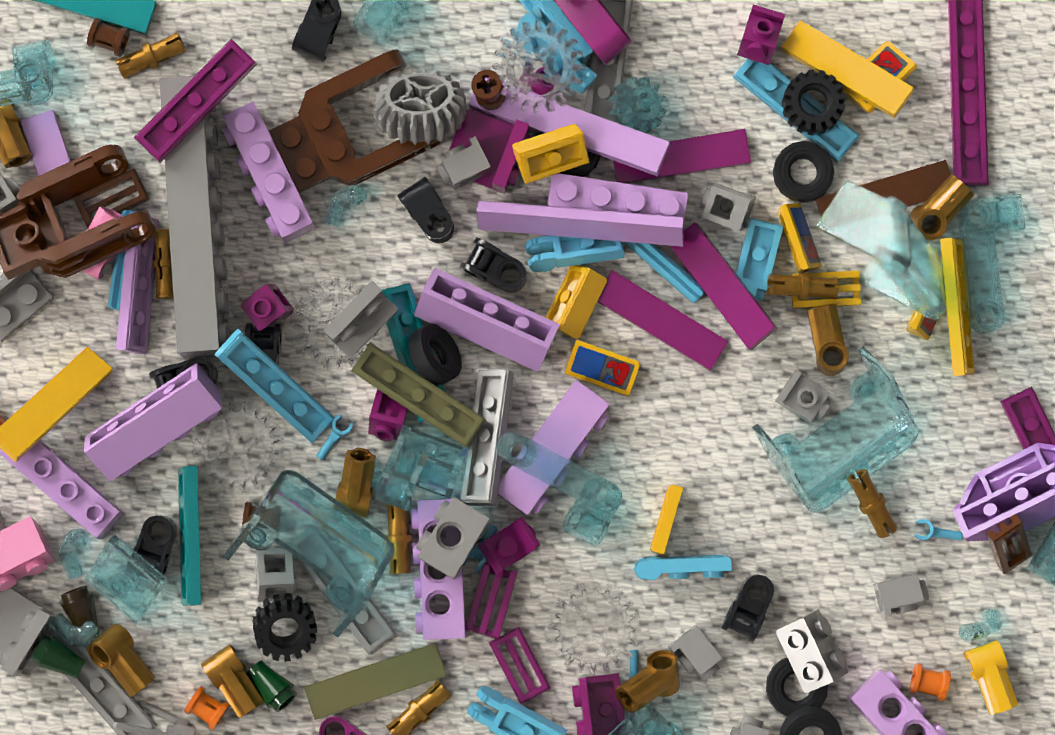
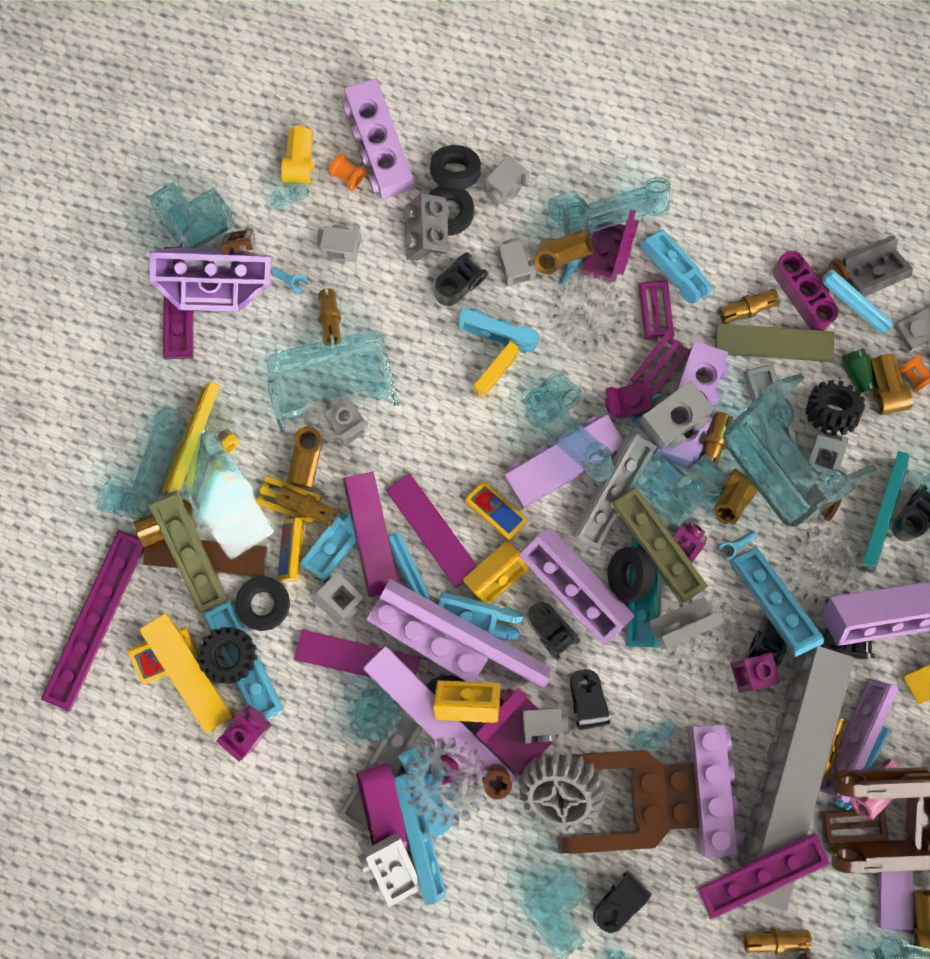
camera: 155 degrees left, 5 degrees down
(895, 180) = (188, 550): none -> olive tile

